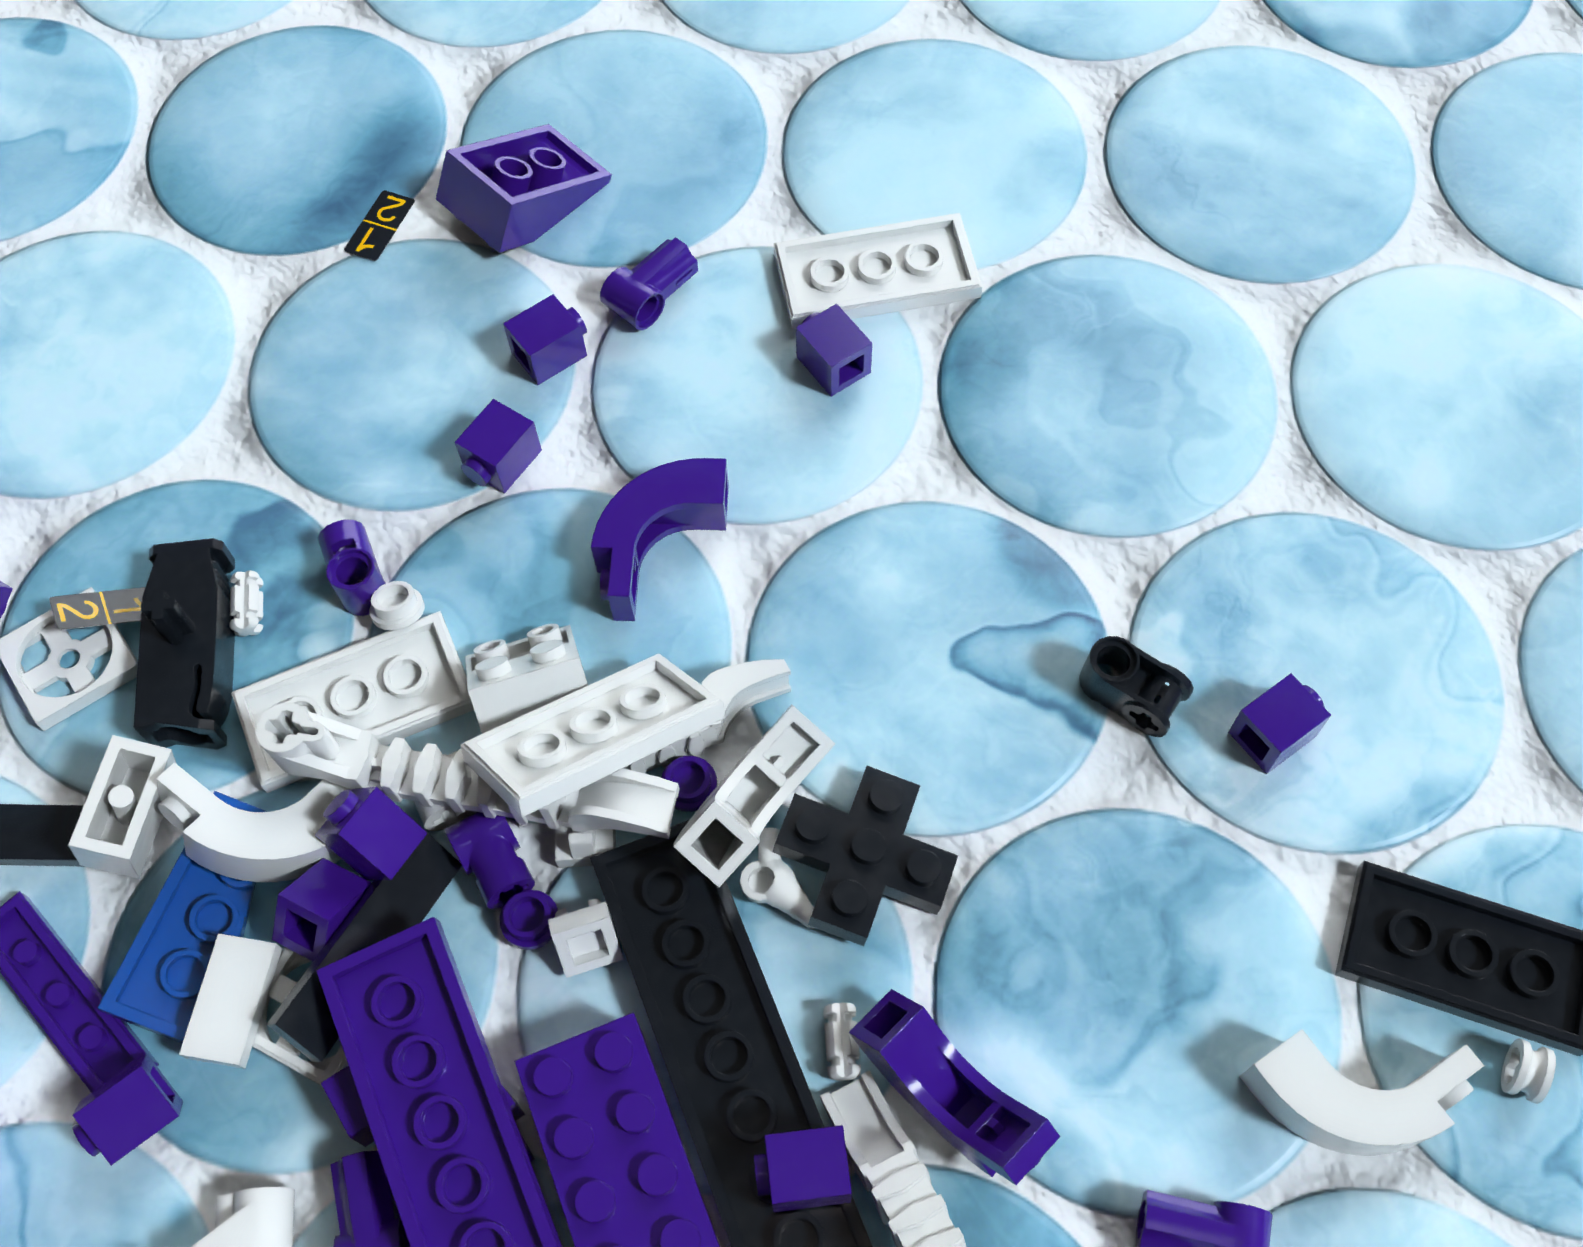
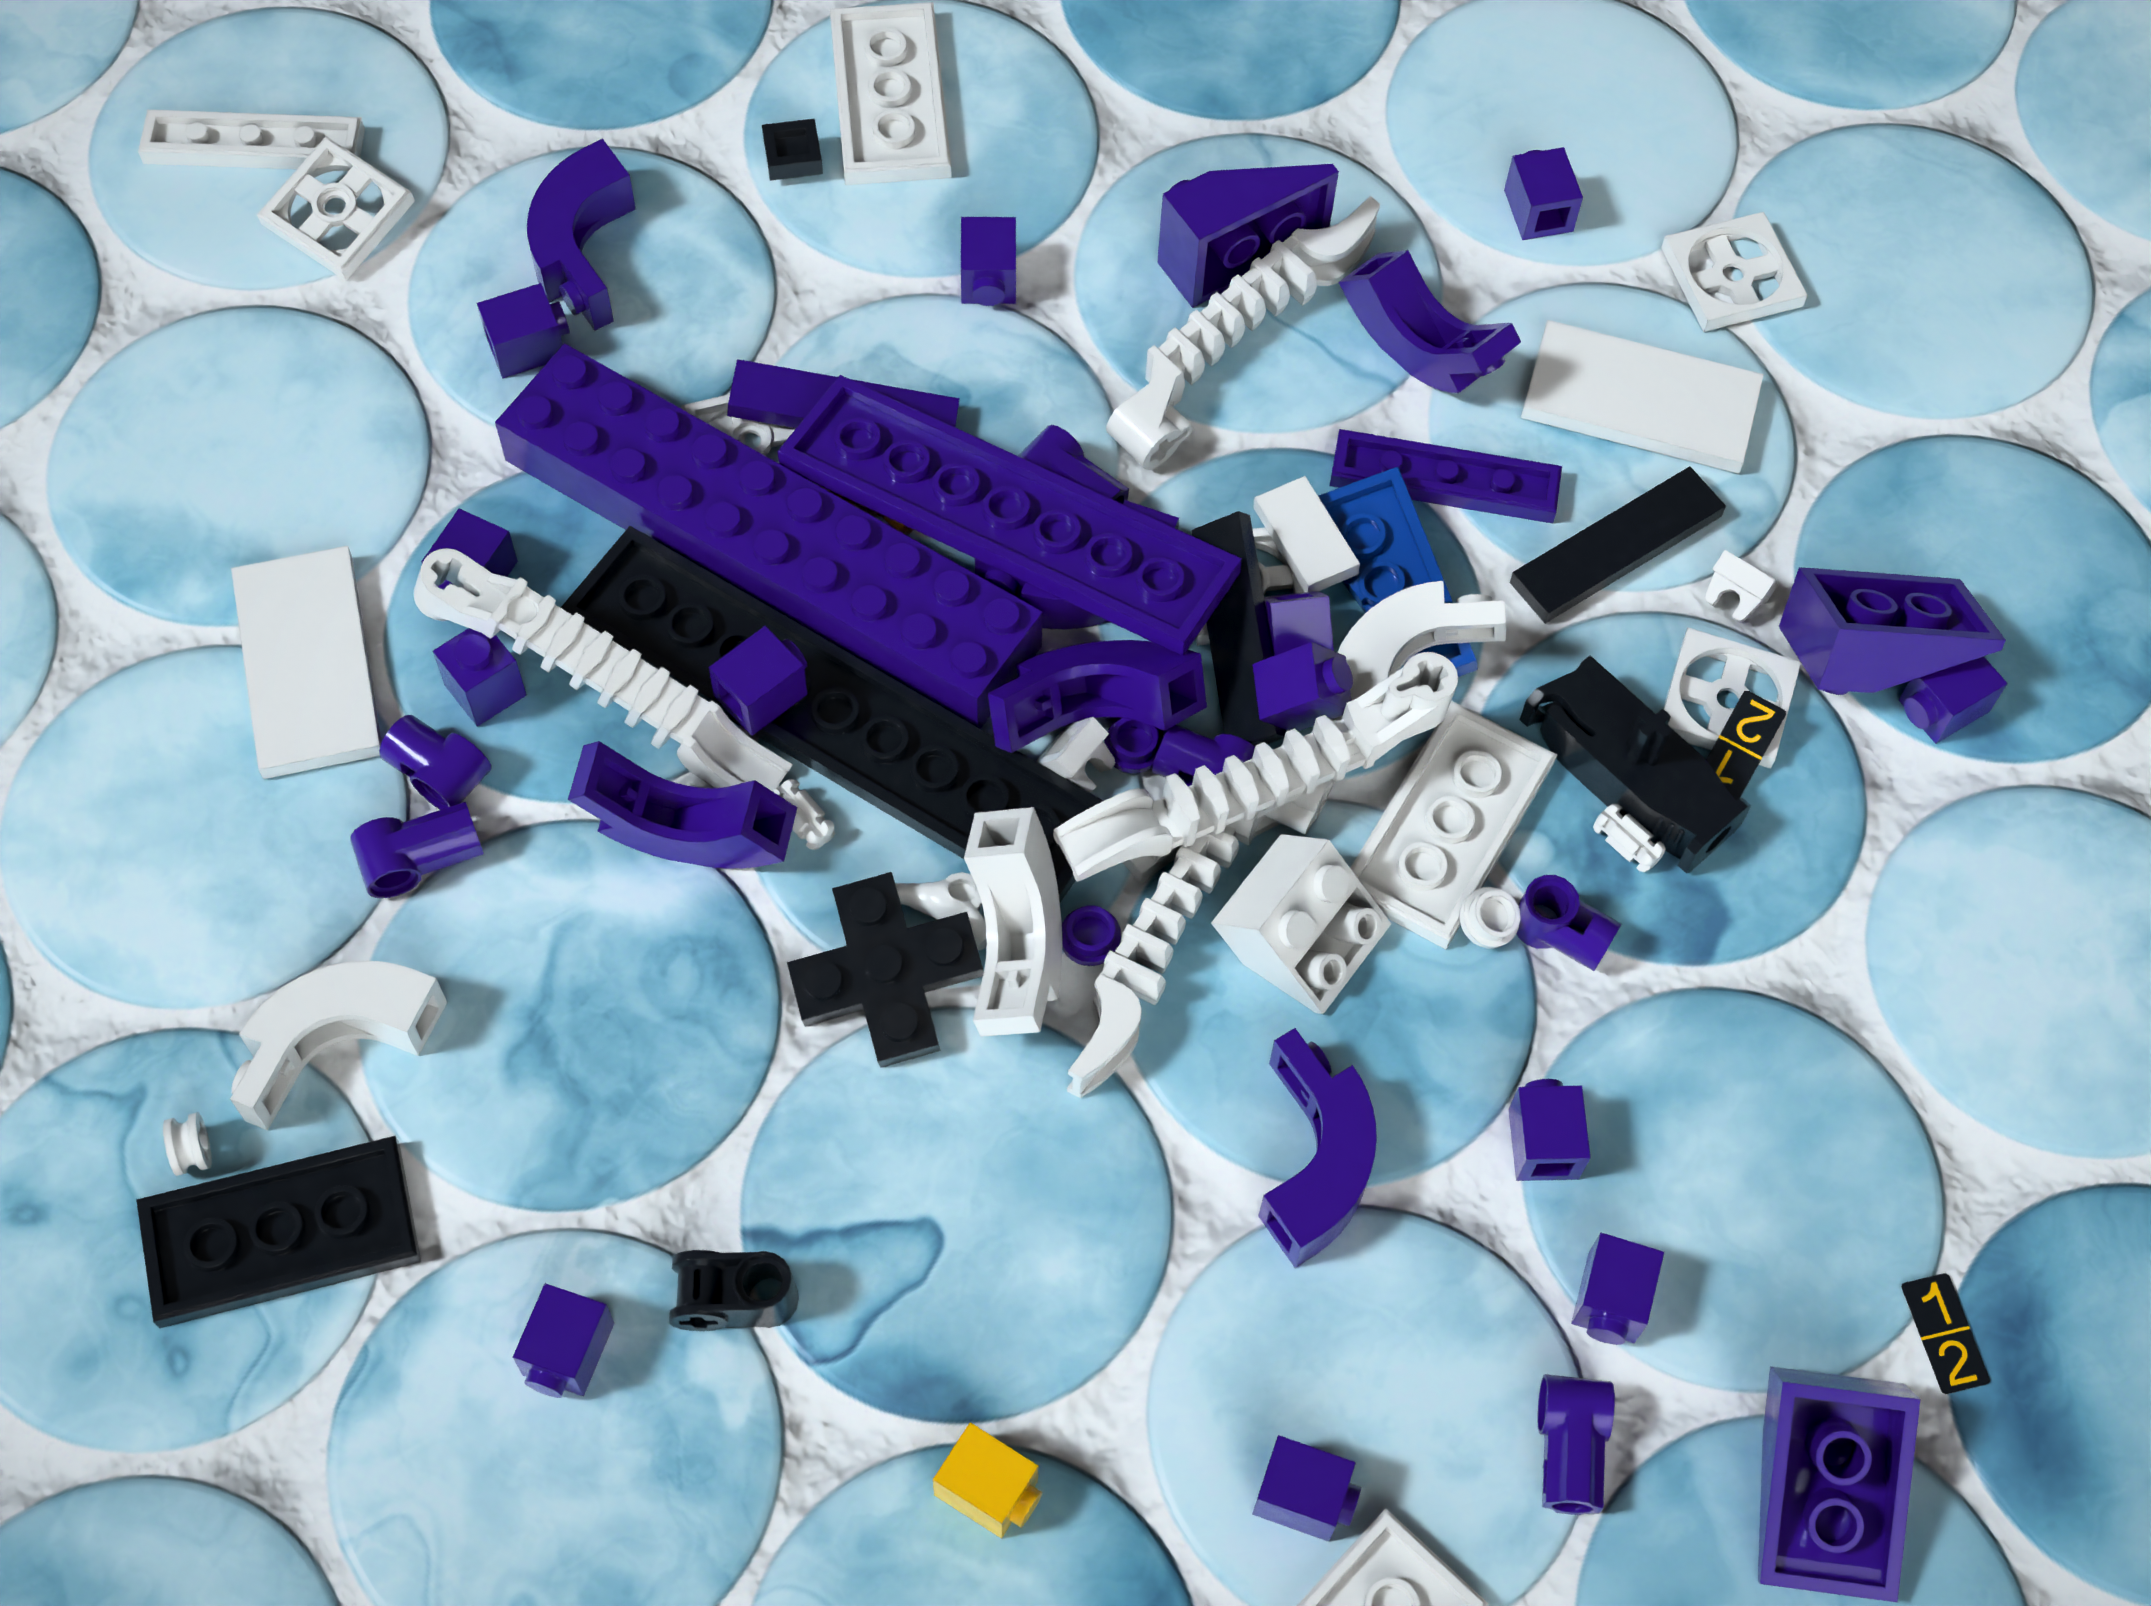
camera: 140 degrees right, 0 degrees up
(122, 808) = (1536, 604): white brick -> none
(126, 1111) = (1308, 430): dark purple brick -> none
(517, 982) = (1097, 681): none -> dark purple arch
(591, 733) = (1185, 870): white tile -> none
(1032, 466) = (988, 1482): none -> yellow brick

